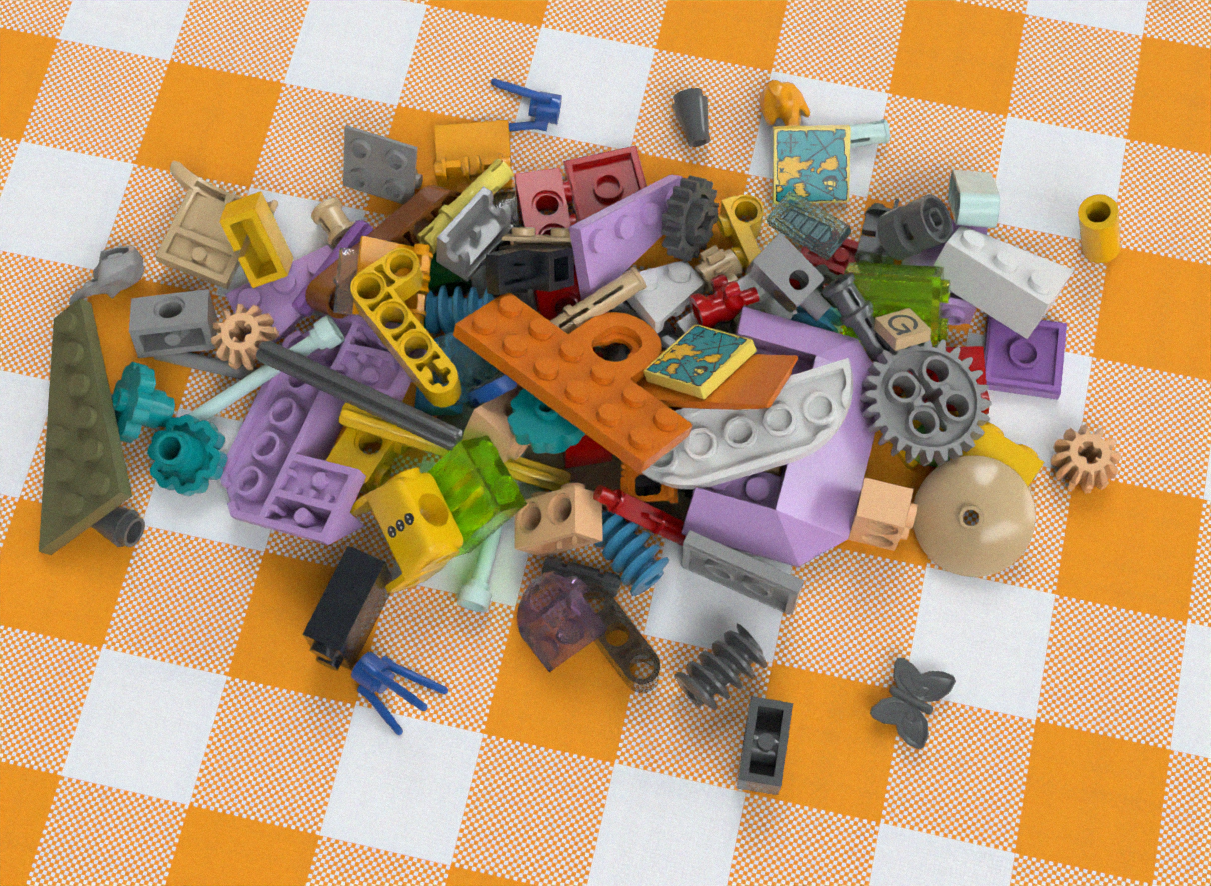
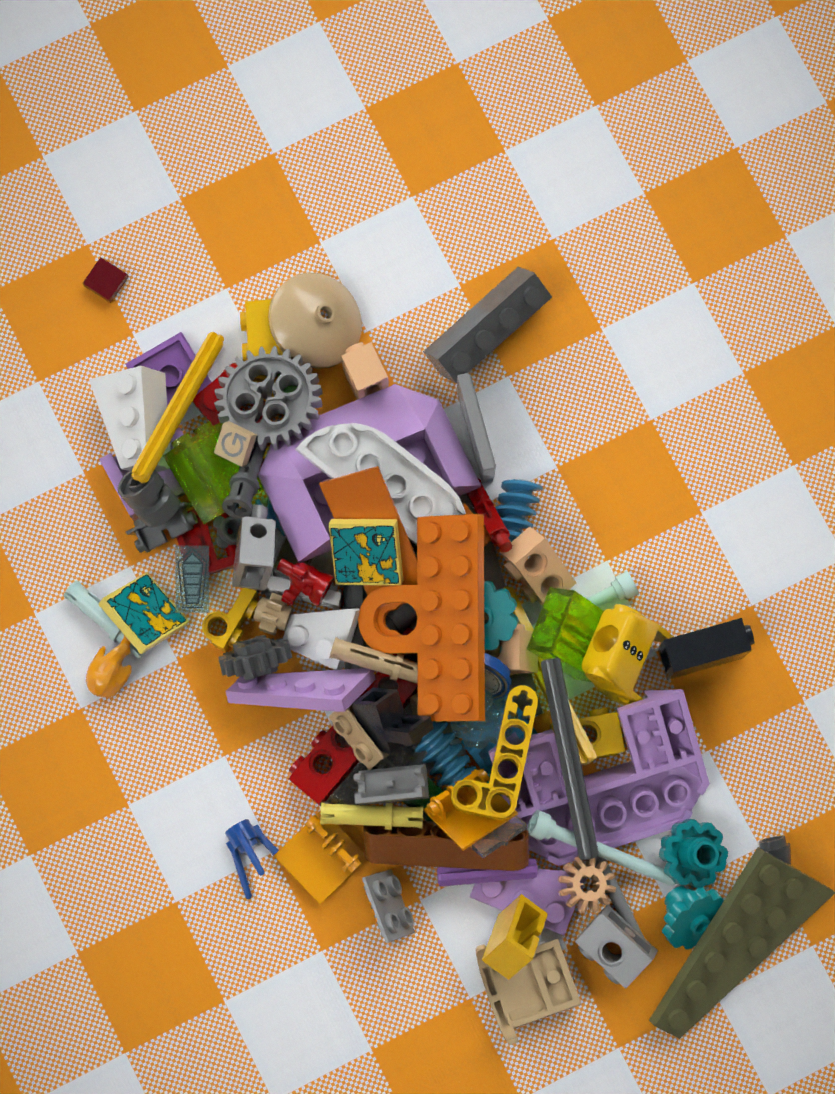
camera: 130 degrees left, 10 degrees up
(116, 271) = (607, 1026): light grey piece -> none
(332, 220) = (451, 906): tan bush -> none
(376, 675) = (727, 603): blue plant -> none
(557, 618) = (600, 515): slope -> none
(585, 573) = (555, 532): dark grey axle -> none
(603, 179) = (270, 742): plate -> none
(633, 651) = (577, 460): clear smoke beam -> none
(692, 113) = (166, 728): dark grey cone -> none
(721, 668) = (543, 395): dark grey piece -> none
(764, 745) = (570, 331): dark grey brick -> none
(838, 673) = (487, 324): none -> dark grey brick
(909, 699) = (464, 275): dark grey piece -> none
(974, 198) = (88, 480): light aqua beam -> none
(982, 317) = (177, 408): none -> yellow axle
(1076, 466) = (214, 270): light nougat gear -> none
(1099, 228) = (40, 374): yellow brick -> none
(1168, 368) = (105, 280): none -> dark red tile

